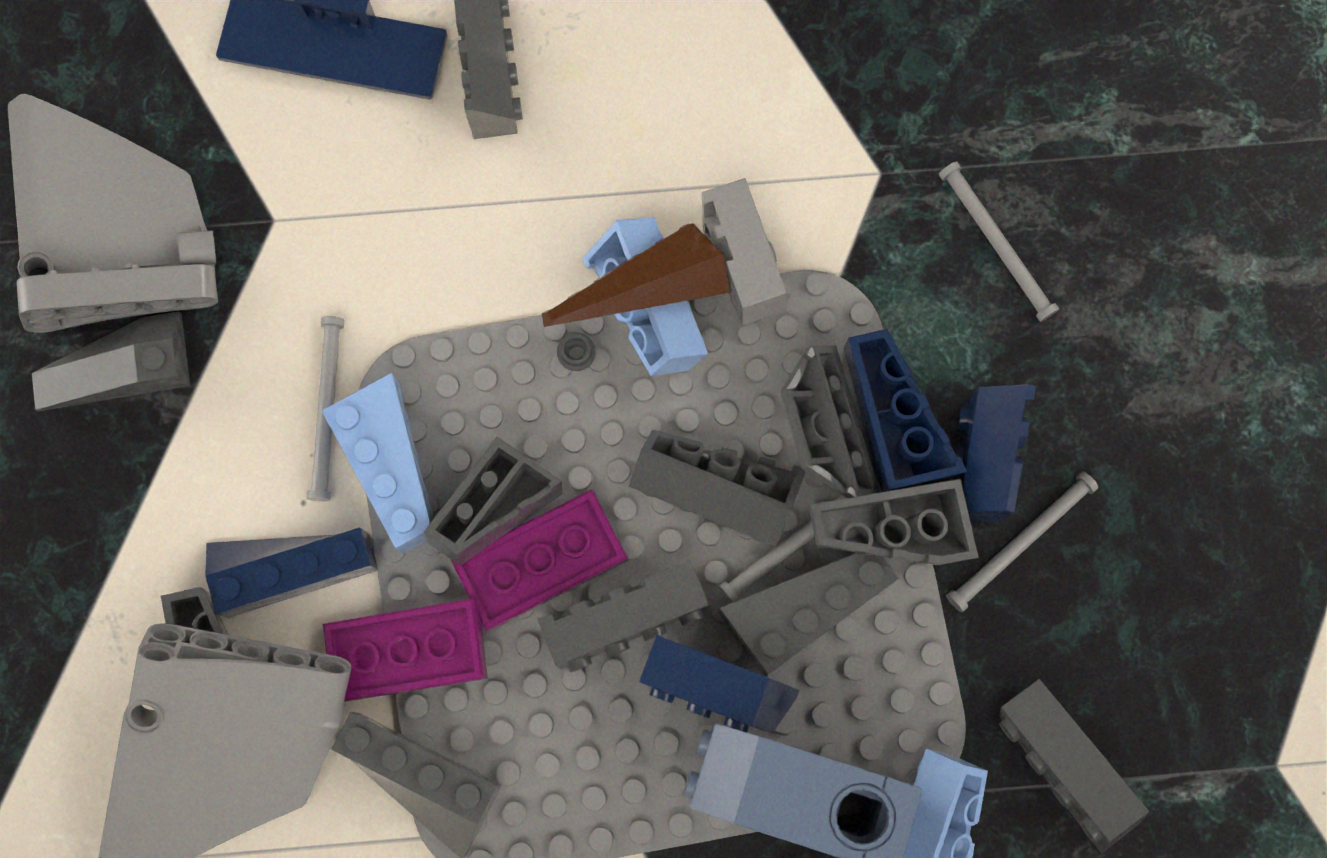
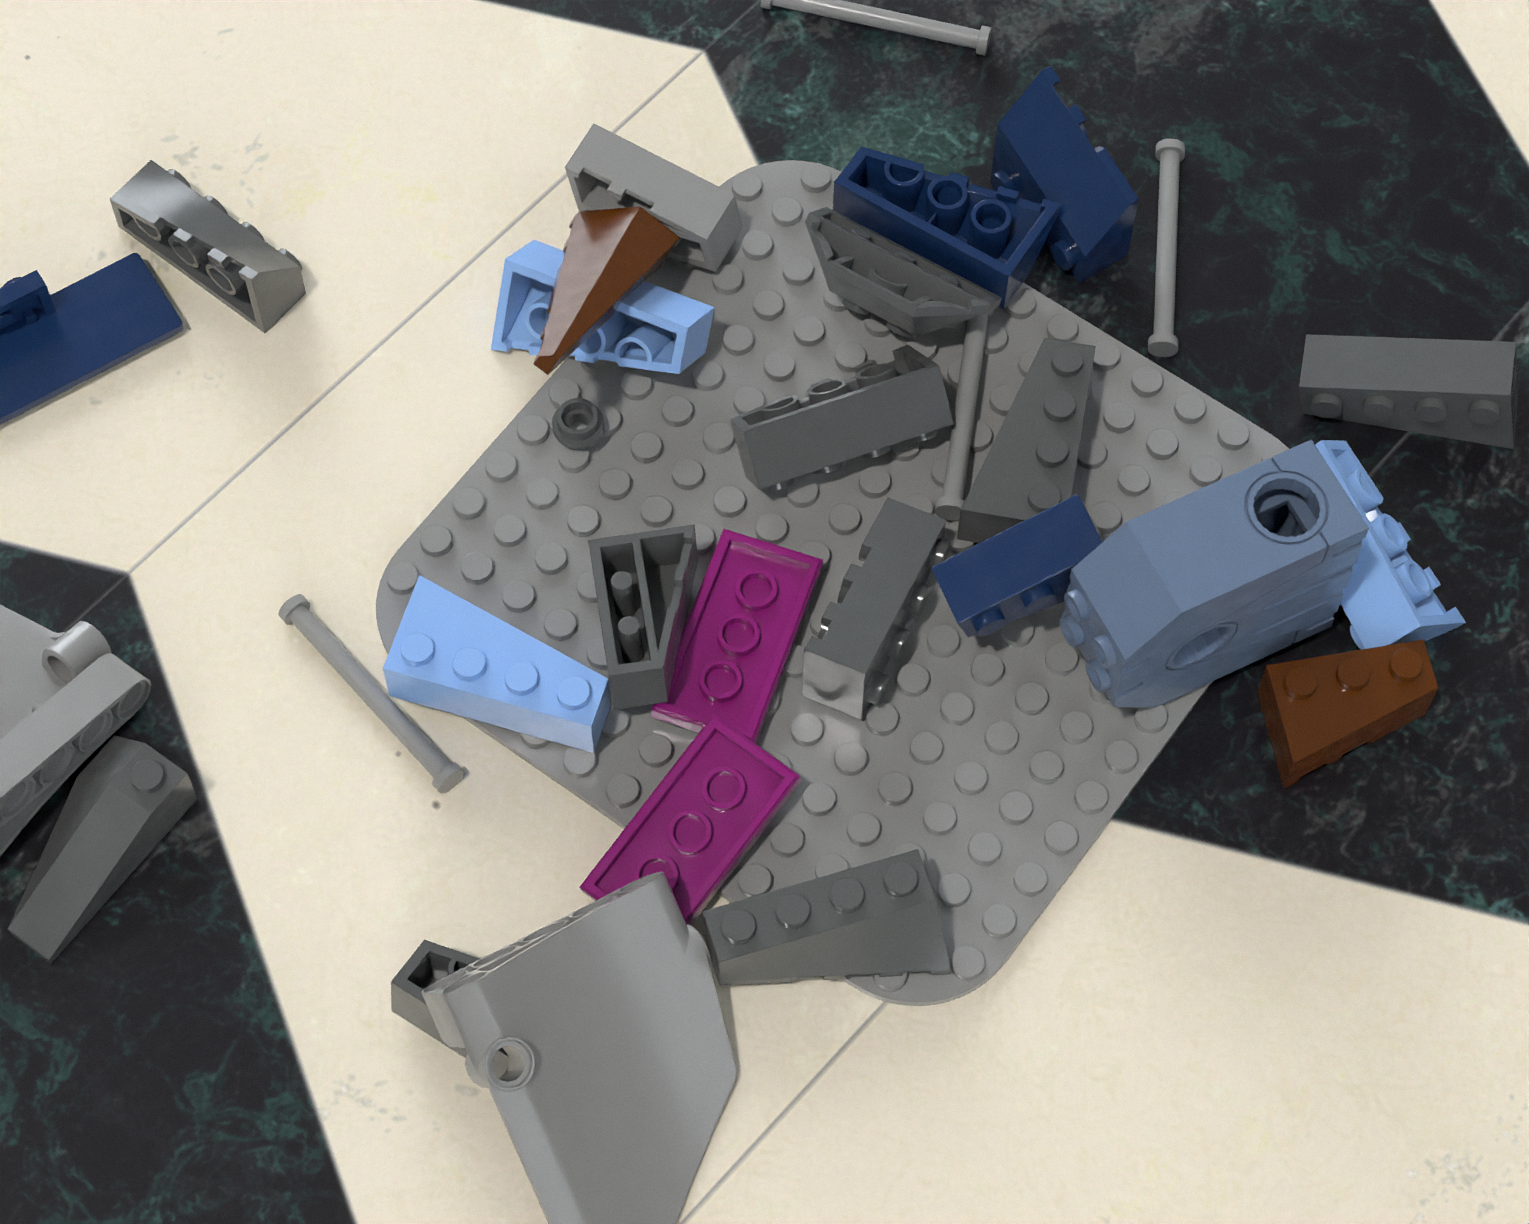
camera: 45 degrees left, 15 degrees down
(269, 571) = (485, 874): dark blue wedge -> none
(905, 524) = (1049, 293): dark grey wedge -> none

